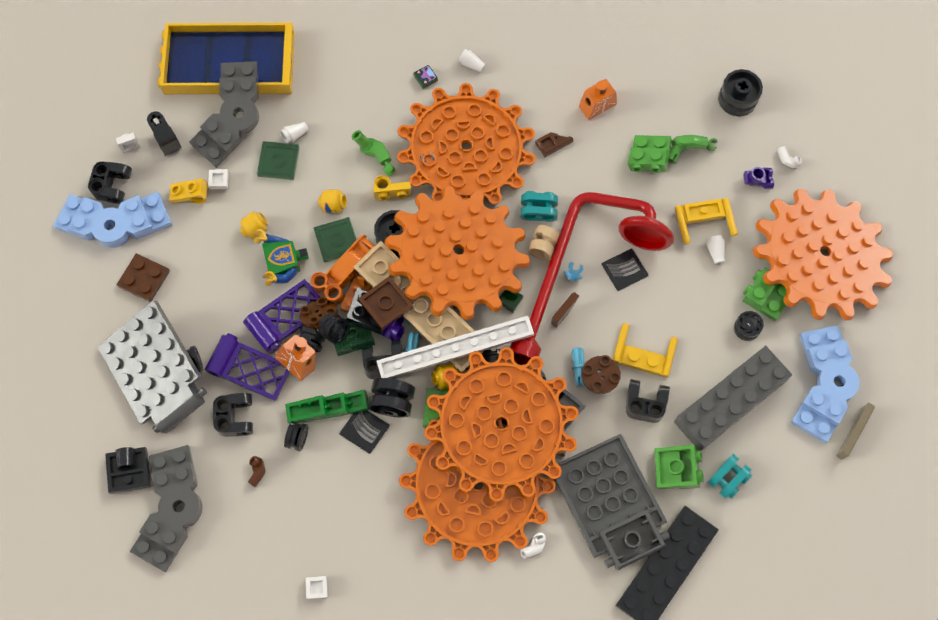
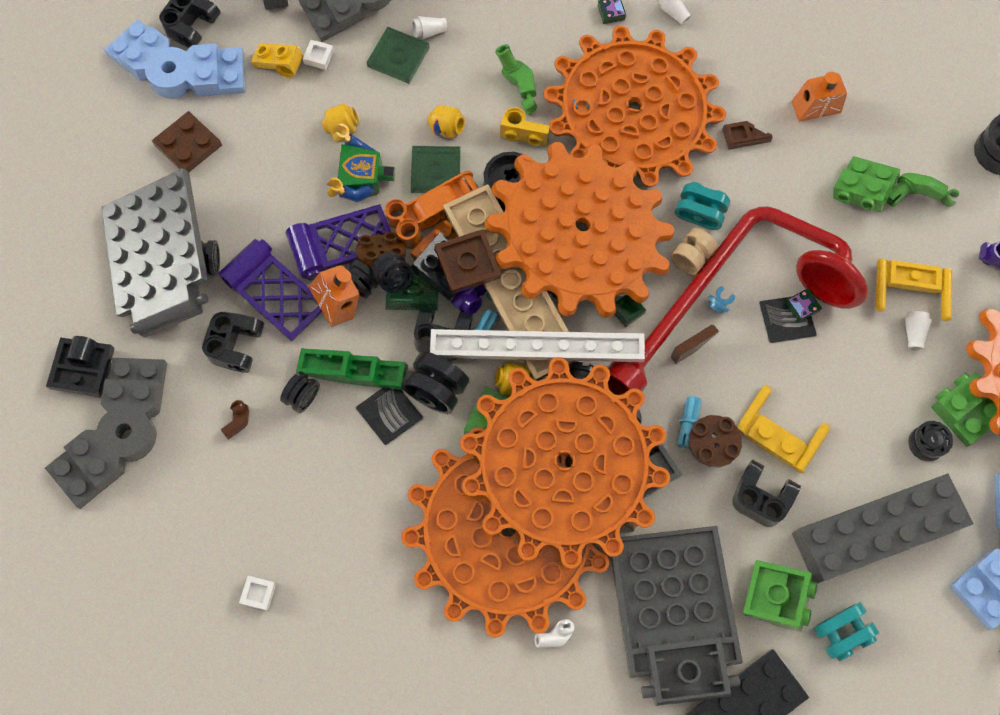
camera: 15 degrees right, 0 degrees up
(632, 256) = (803, 305): none -> tile

